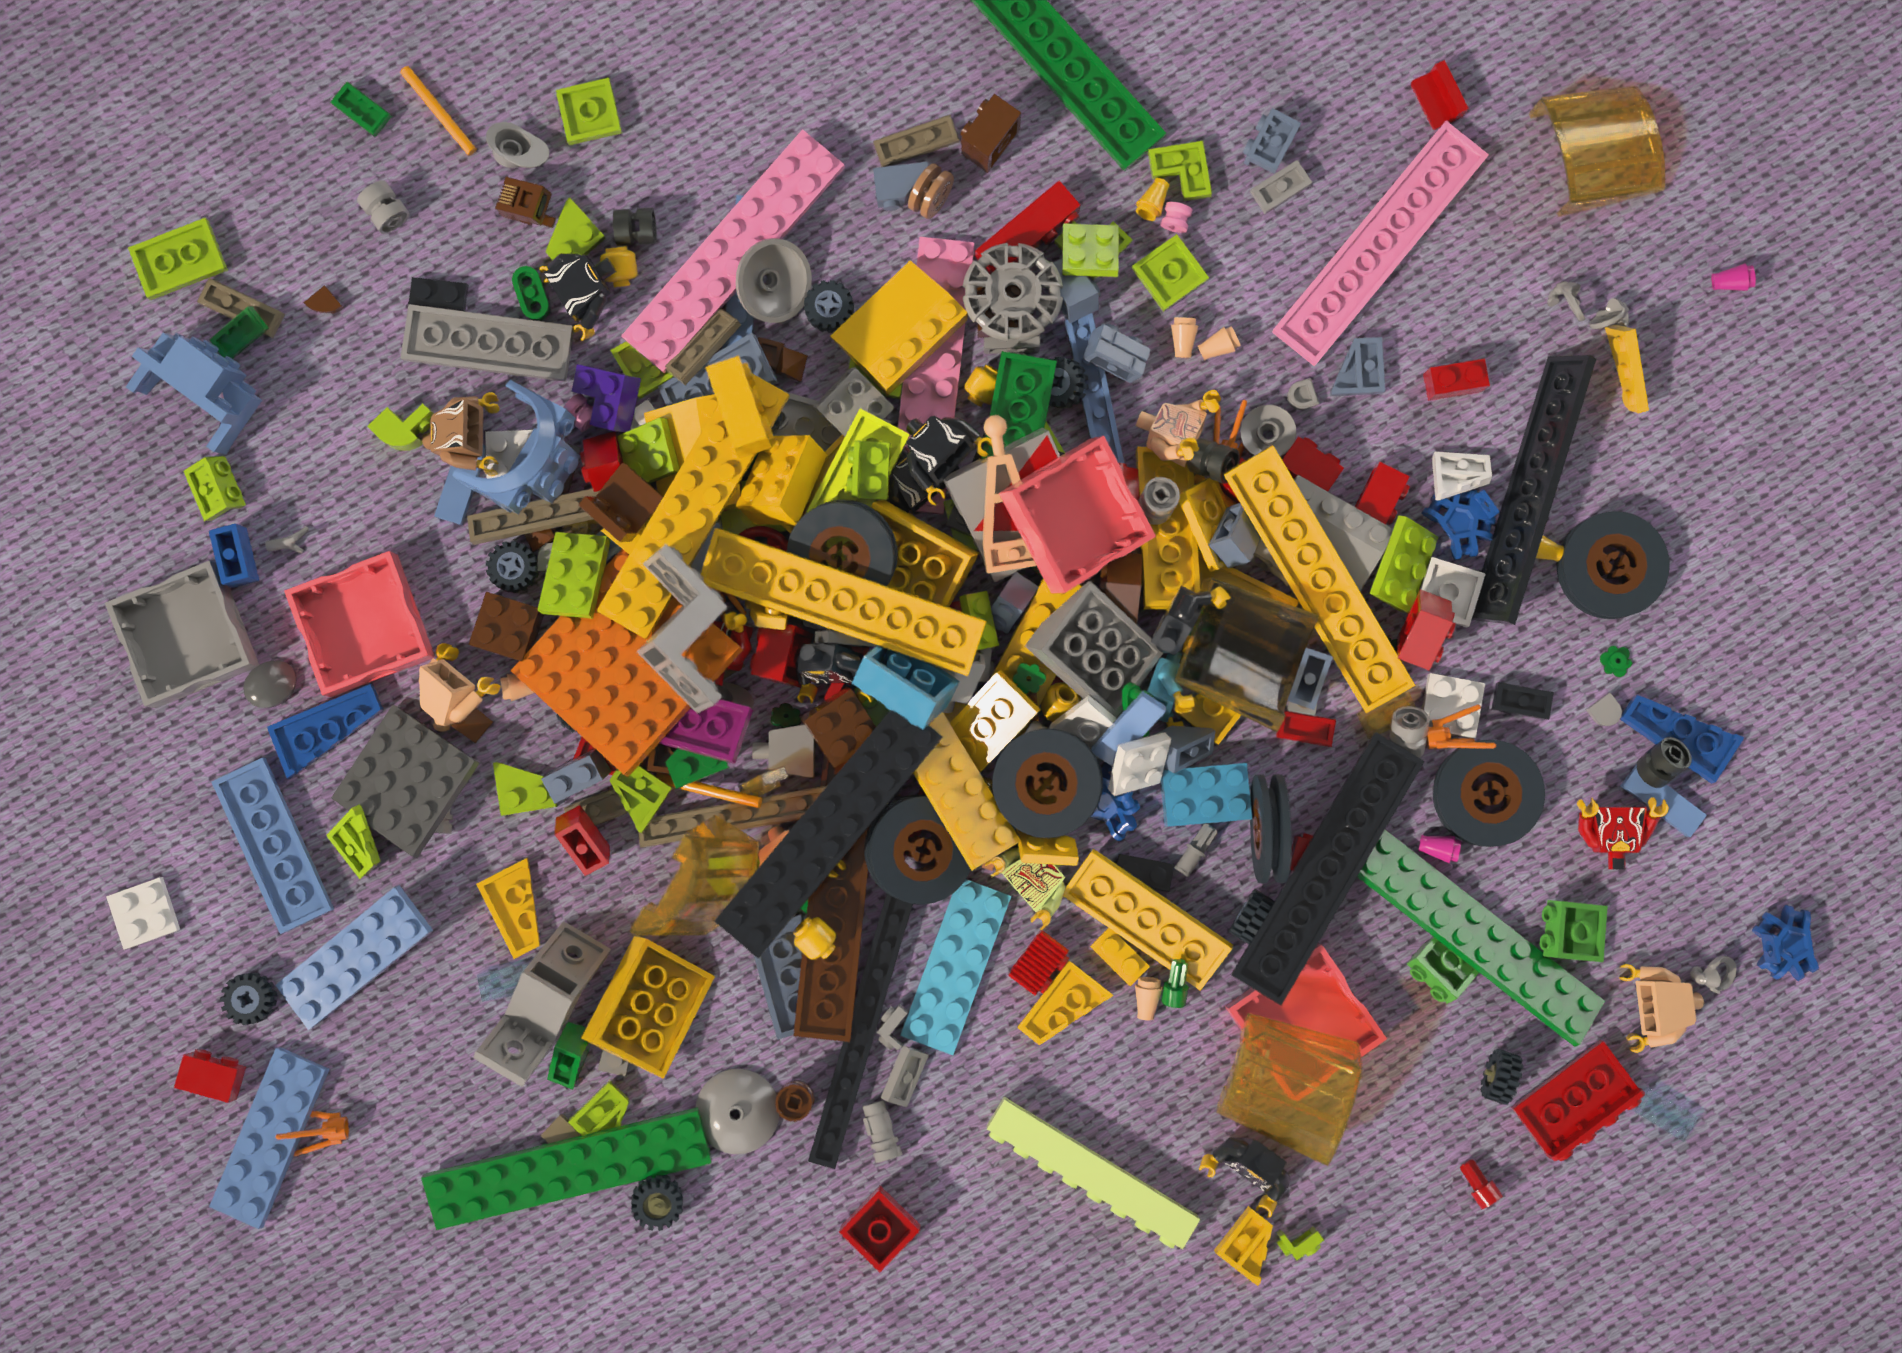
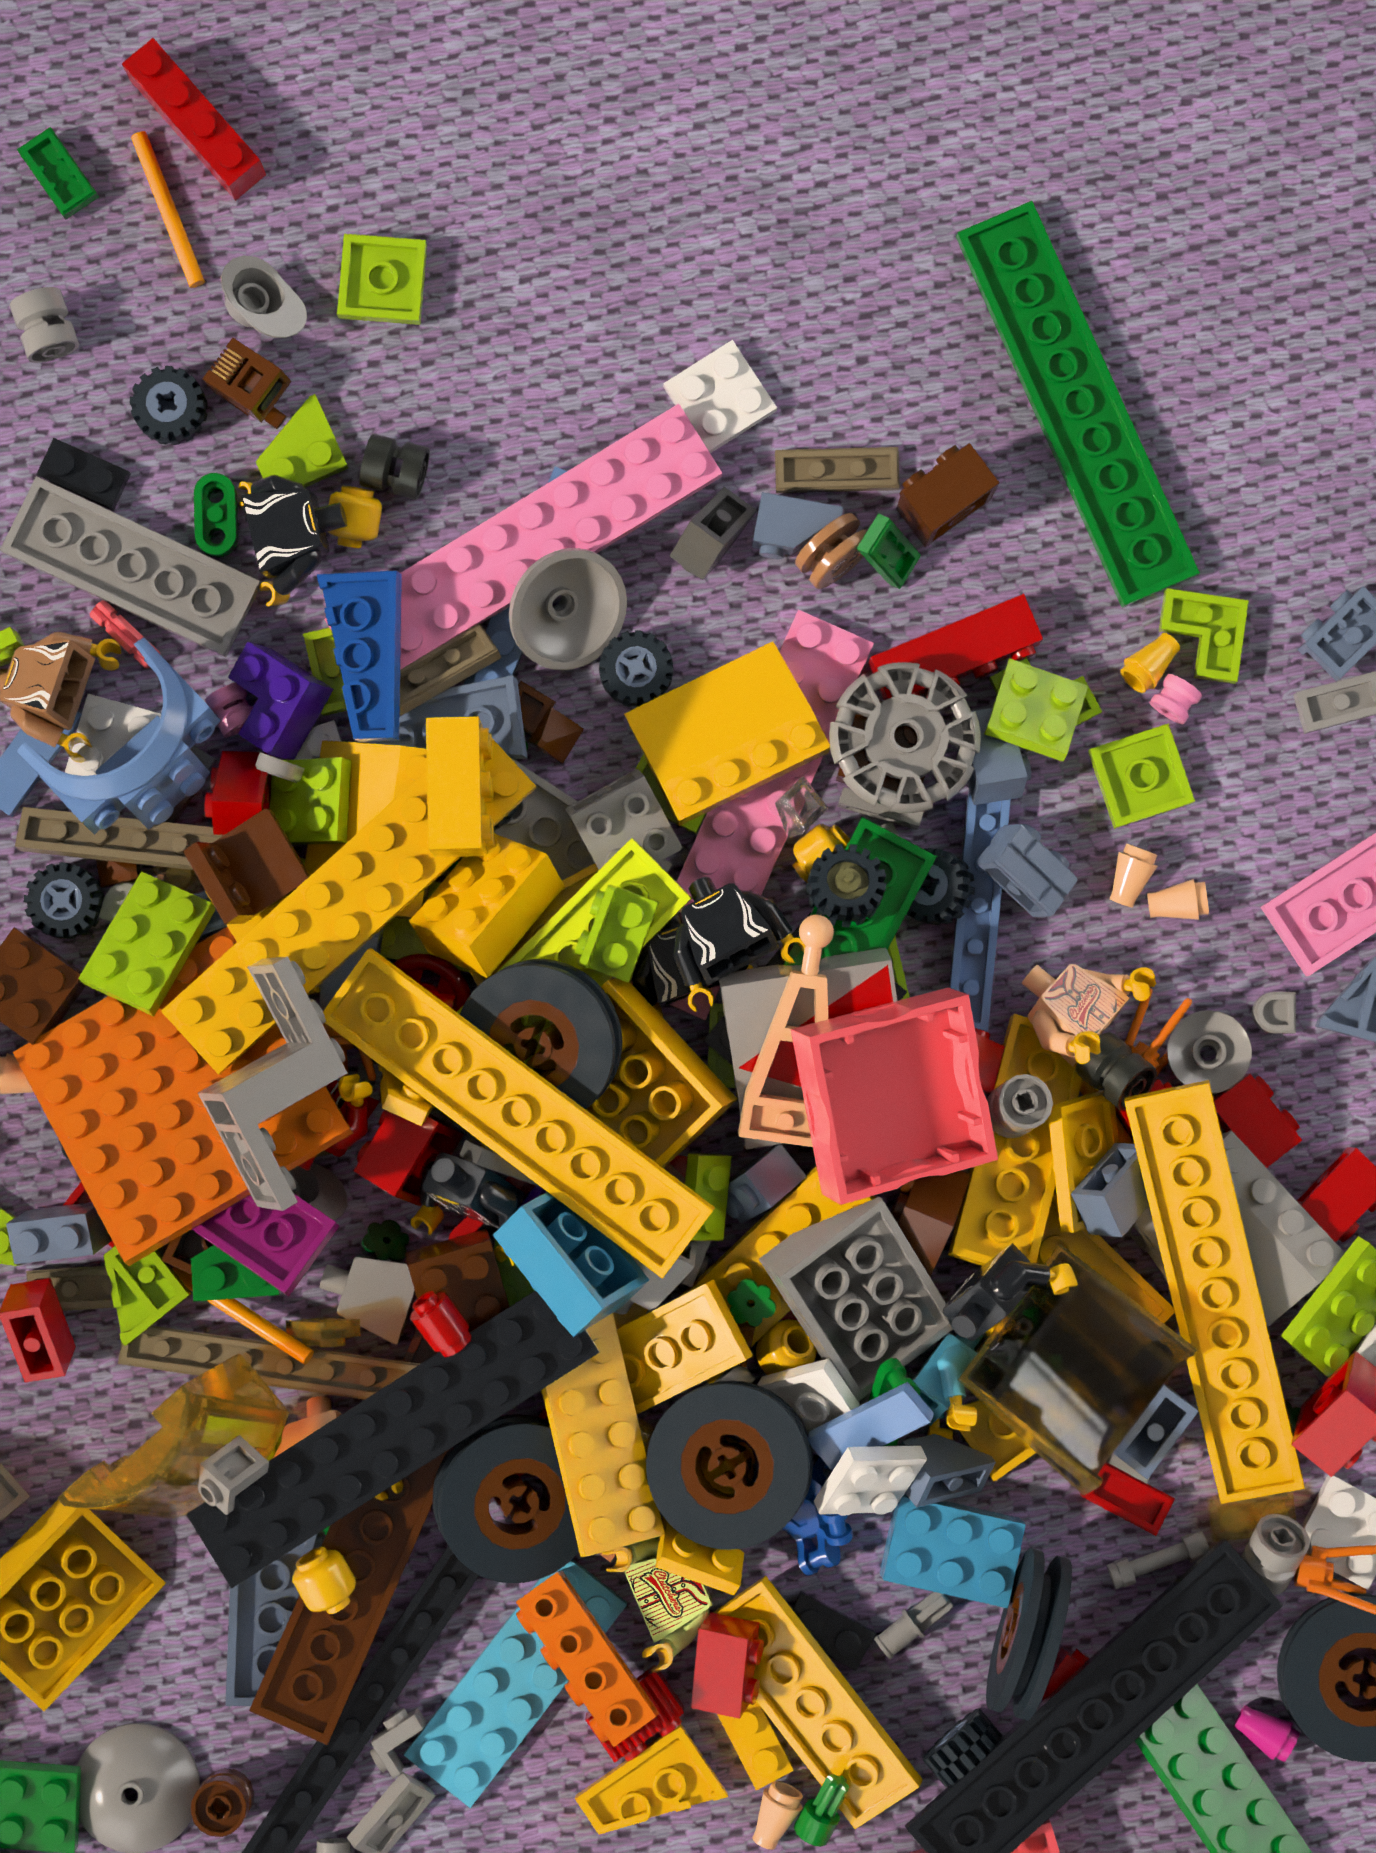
camera: 10 degrees right, 0 degrees up
(437, 47) = (194, 119): none -> red brick
(480, 243) = (179, 416): none -> black wheel
(494, 385) = (119, 629): none -> coral axle
(622, 436) = (279, 768): none -> light grey tile
(651, 335) = (367, 640): none -> blue wing
(733, 884) = (229, 1473): none -> light grey bracket
(828, 117) = (720, 396): none -> white plate
(836, 749) = (440, 1323): none -> red brick
(849, 205) = (712, 533): none -> dark grey slope
(960, 360) = (799, 807): none -> clear slope
(965, 180) = (889, 551): none -> green plate
(996, 934) = (586, 1658): none -> orange brick
(1005, 394) = (846, 885): none -> black wheel
(1086, 912) = (726, 1665): none -> brick
(1318, 776) = (1124, 1572): none -> light grey bar

